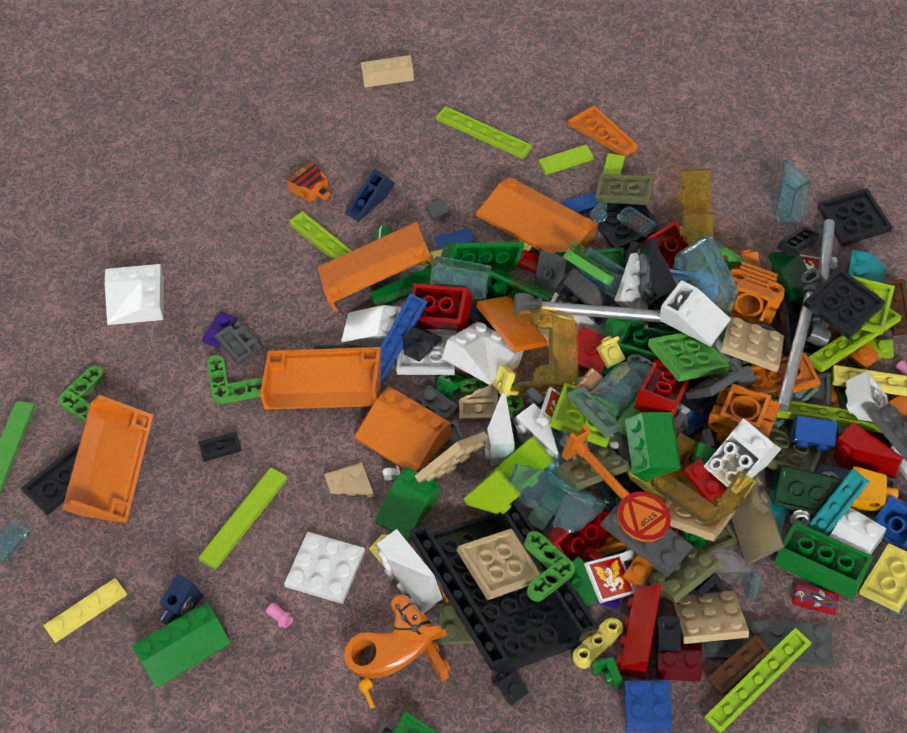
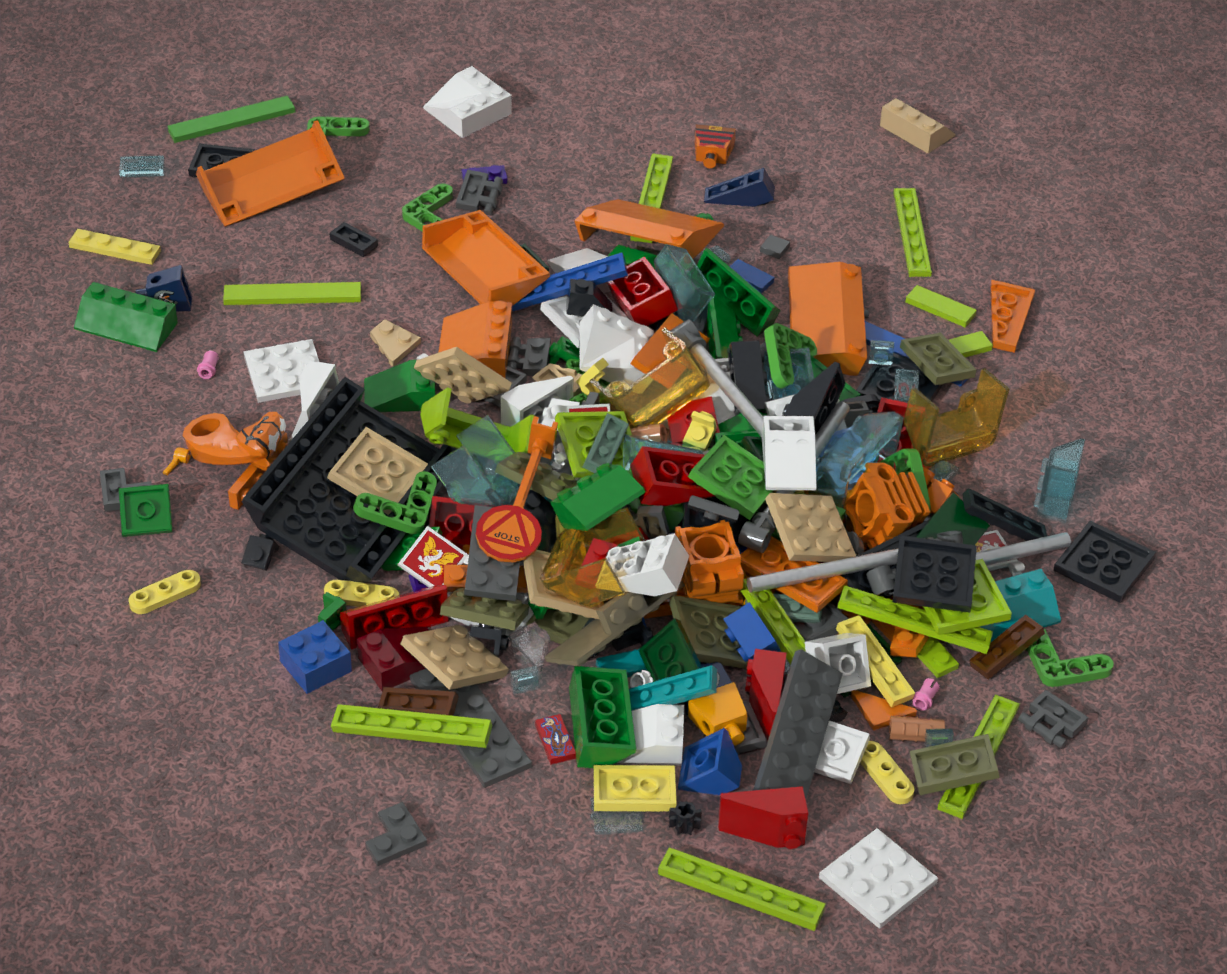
camera: 50 degrees right, 10 degrees down
(668, 633) = (399, 620): black slope -> none

